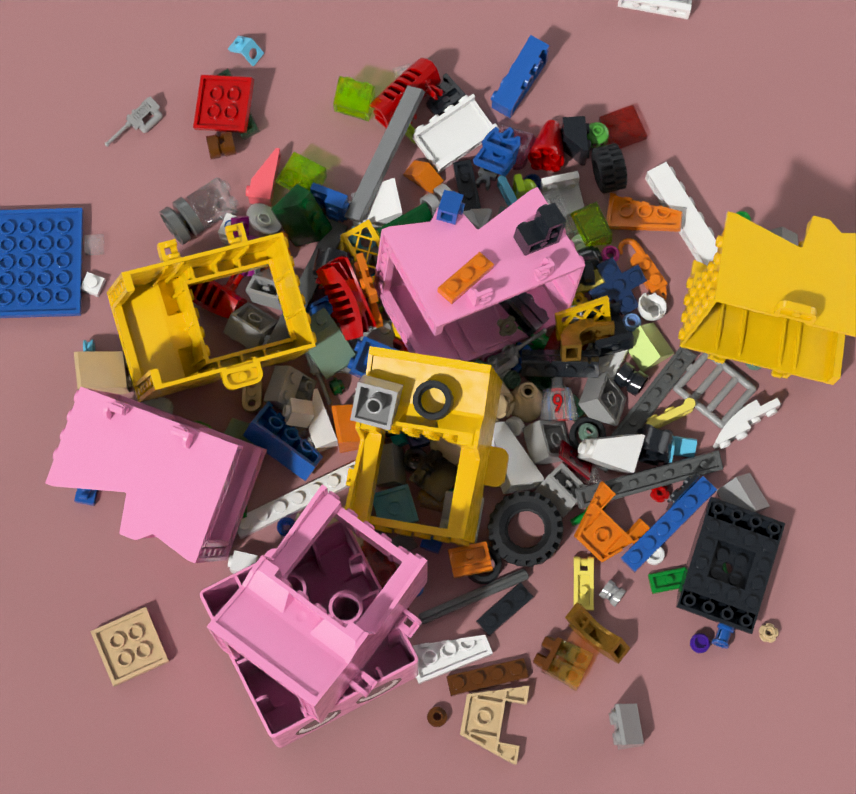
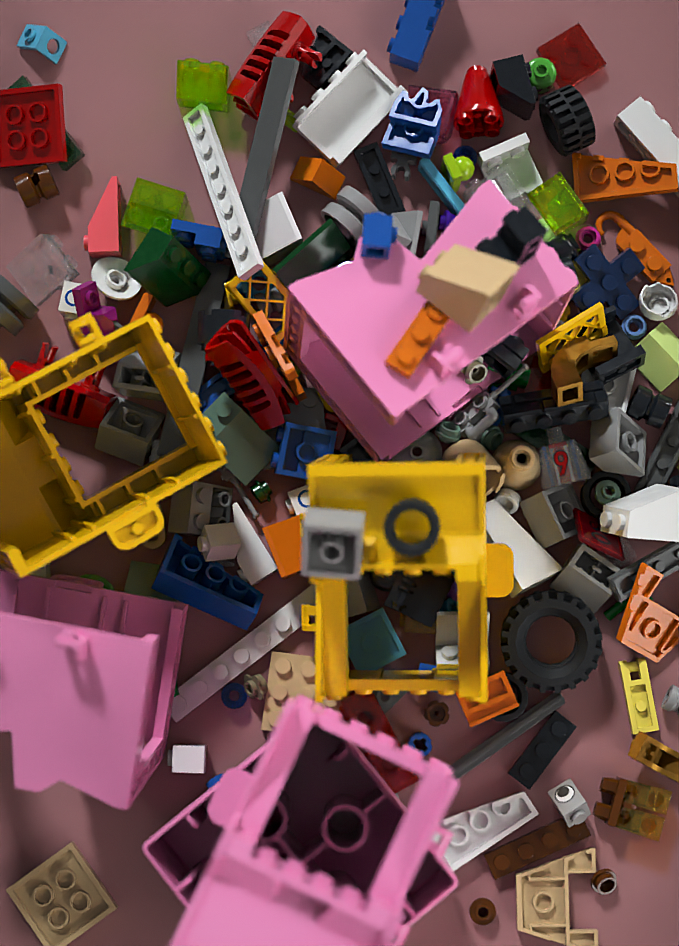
camera: 10 degrees left, 10 degrees up
(352, 171) = (223, 192): none -> white plate
(437, 568) = (443, 715): none -> reddish brown plate
(504, 248) = (466, 284): none -> tan slope
(516, 648) = (569, 803): none -> light grey brick
(535, 715) = (604, 881): none -> reddish brown plate

